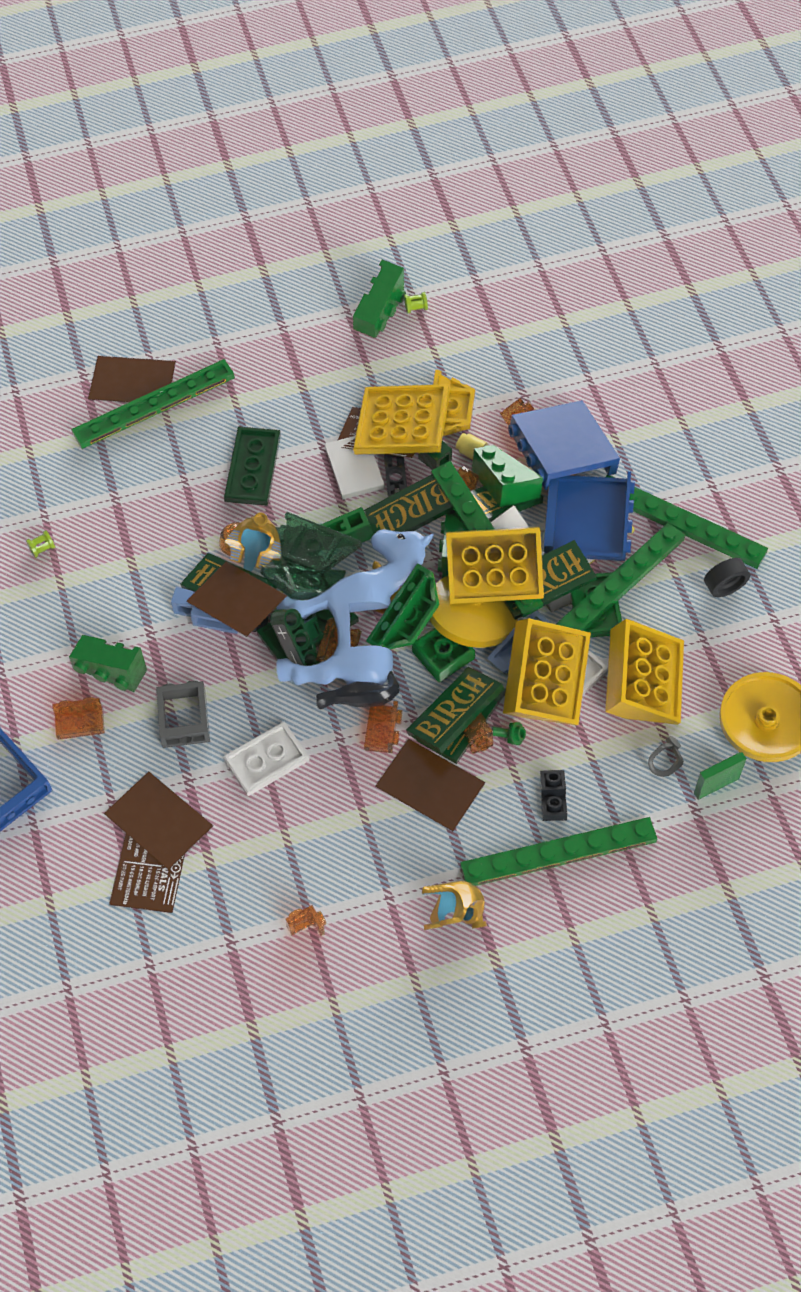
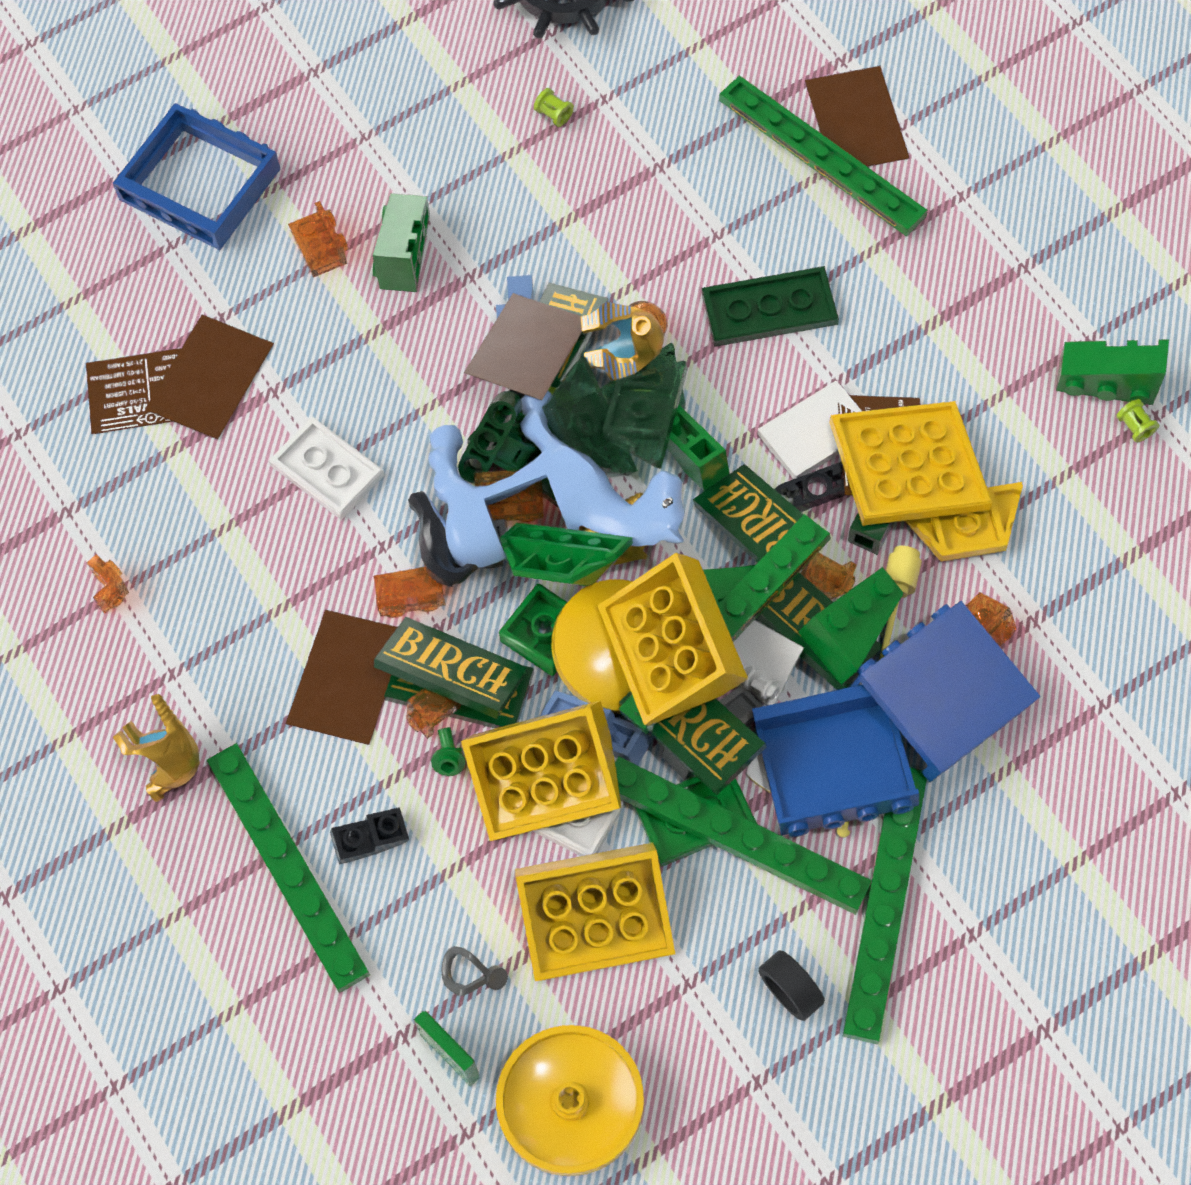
camera: 75 degrees right, 5 degrees up
(184, 734) = (363, 372): dark grey window -> none

